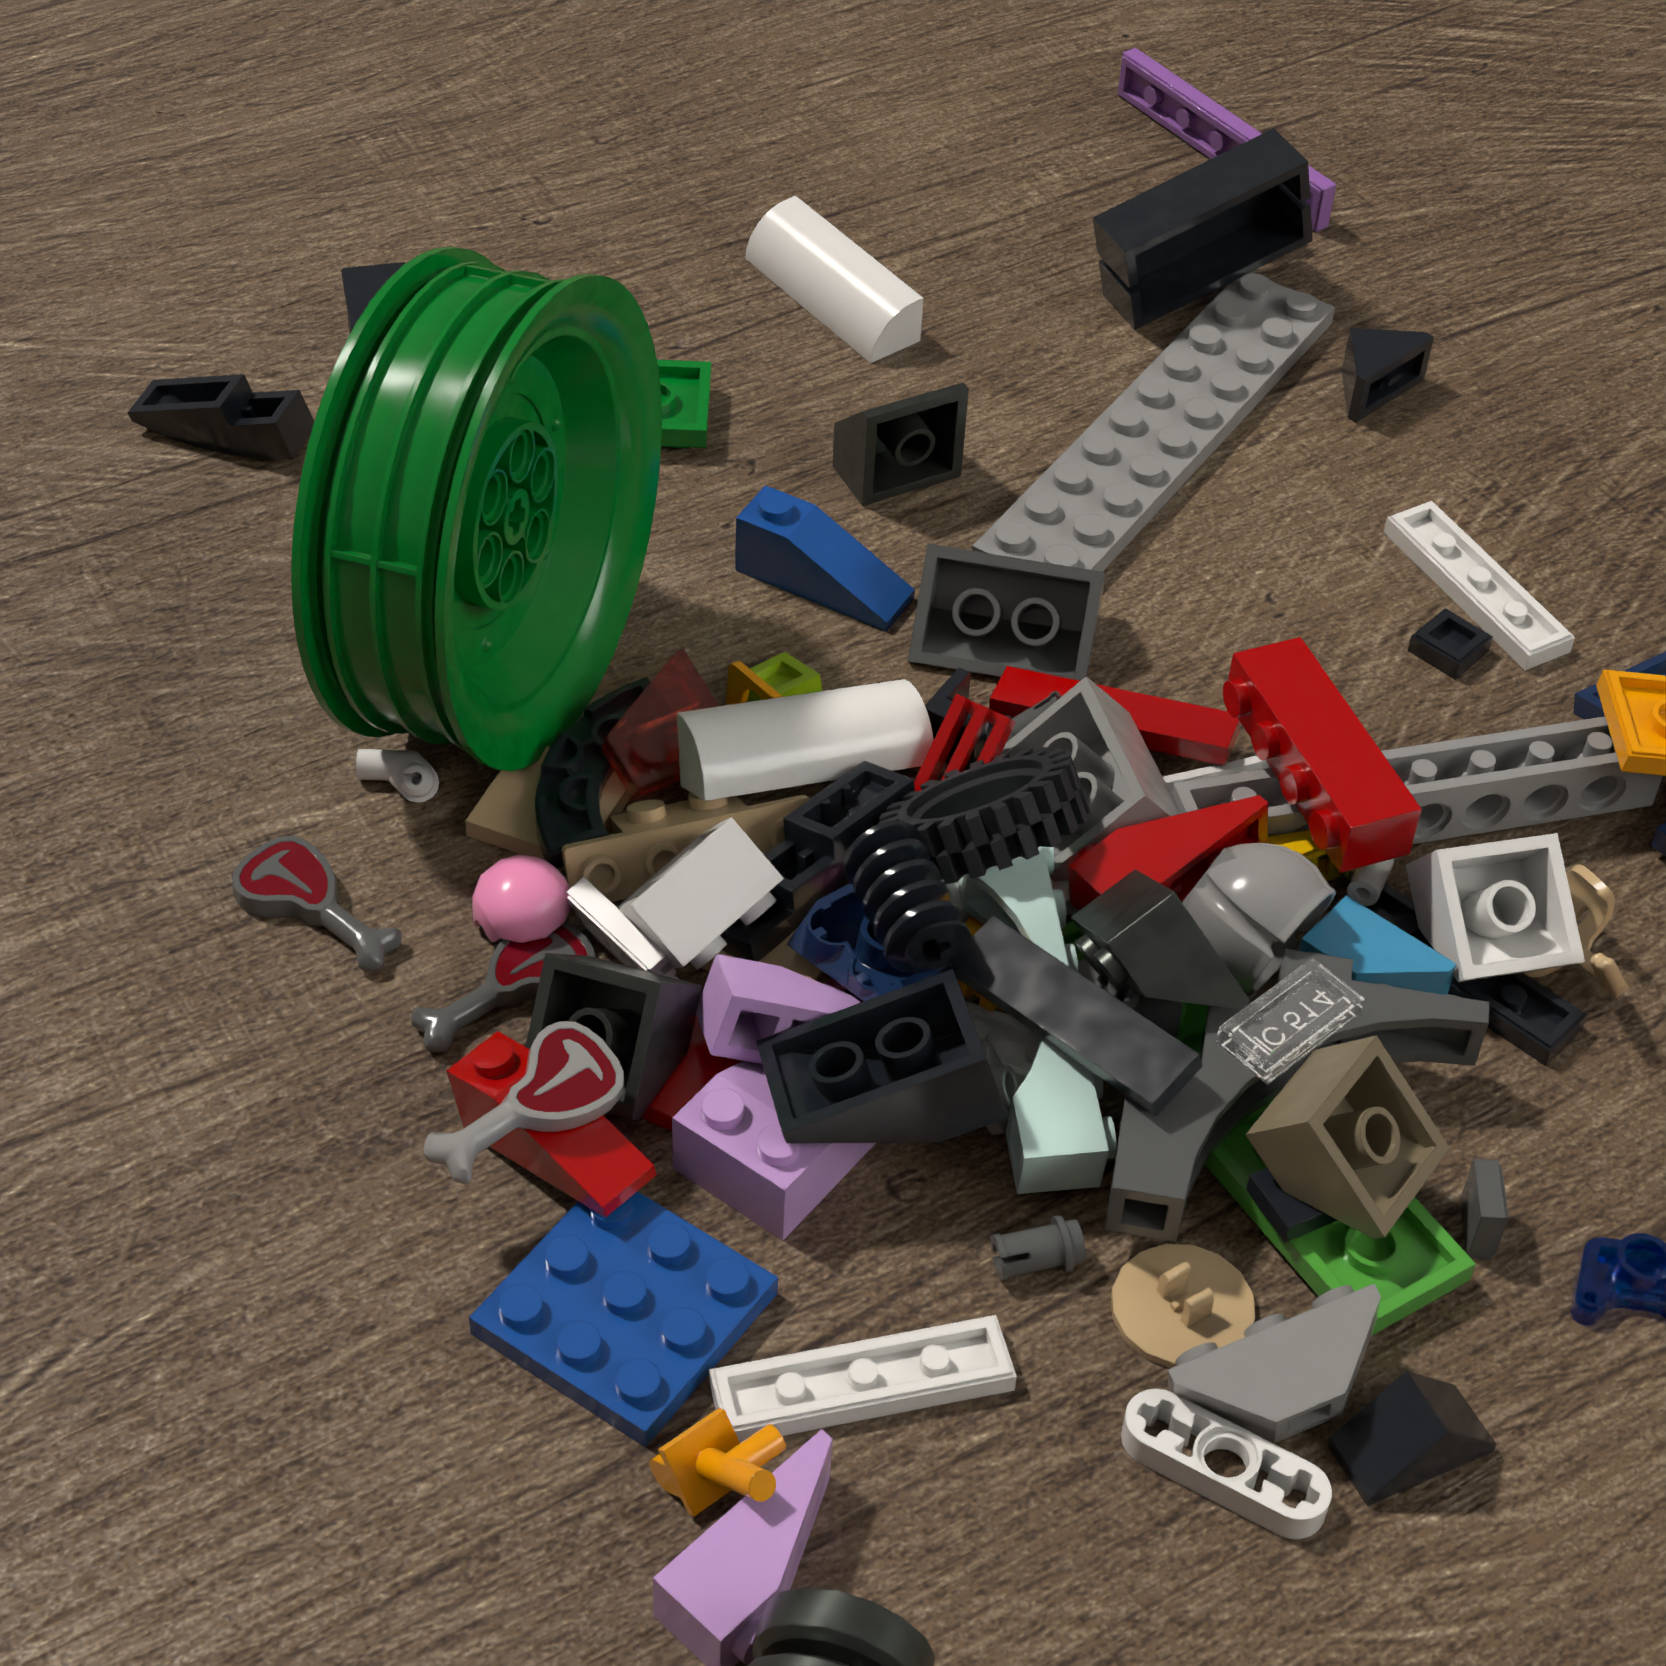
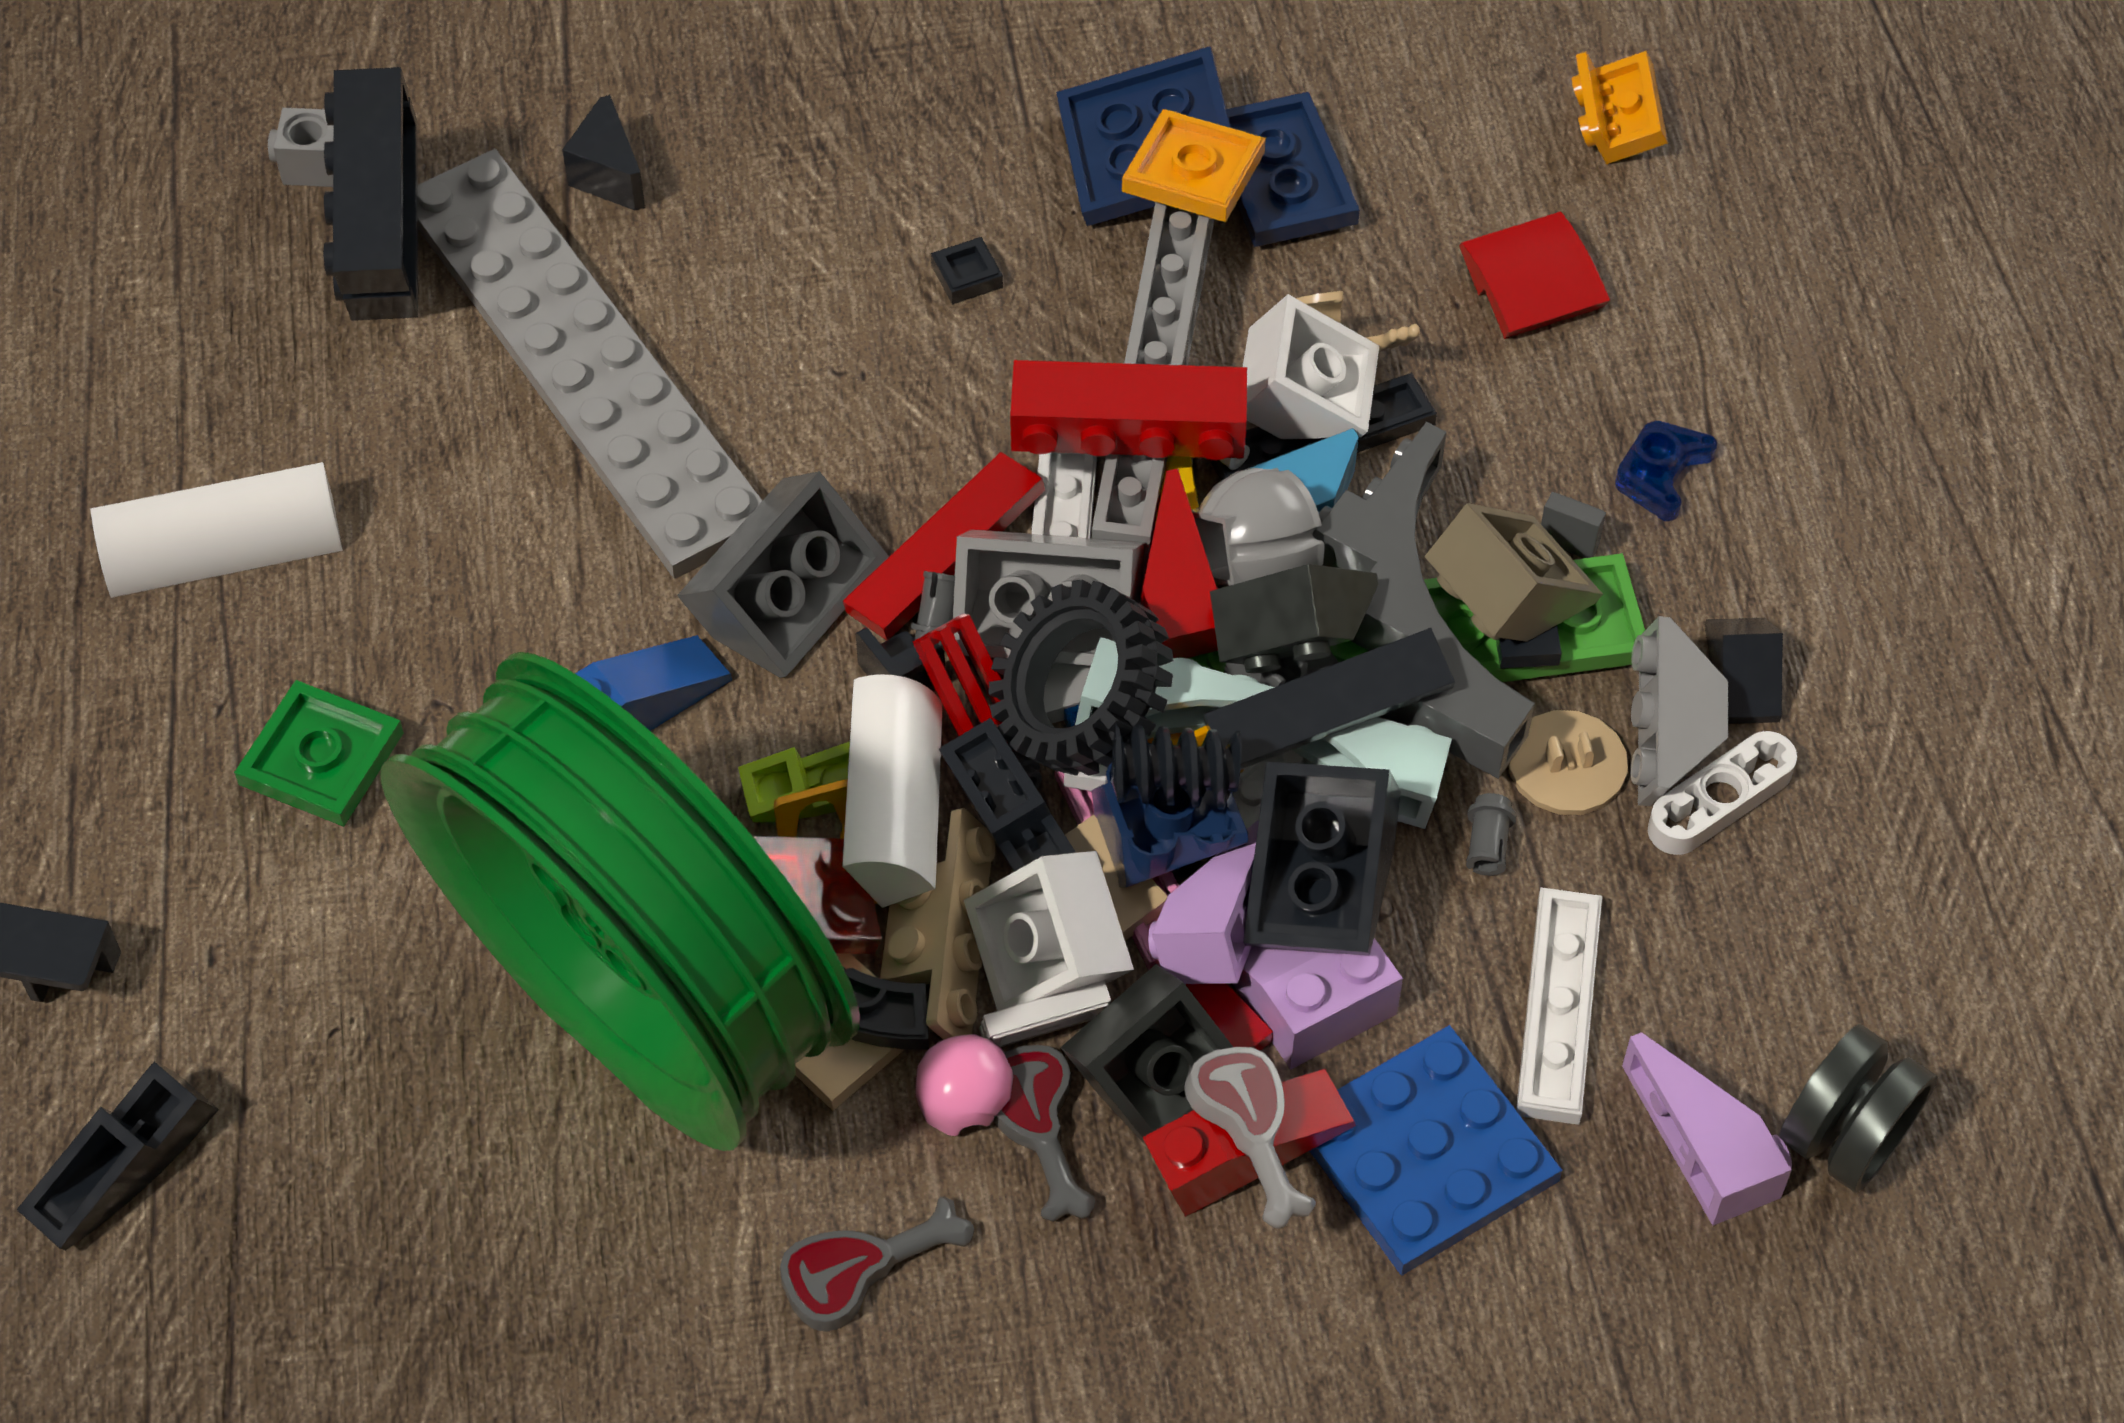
camera: 65 degrees left, 10 degrees up
(403, 769) = (760, 1132): white arm -> none
(711, 1462) = (1605, 1133): light orange arm -> none
(902, 444) = (509, 563): pearl dark grey slope -> none
(1202, 120) = (172, 121): medium lavender tile -> none
(1289, 1020) = (1399, 556): clear tile -> none
(1479, 585) = (904, 217): white tile -> none

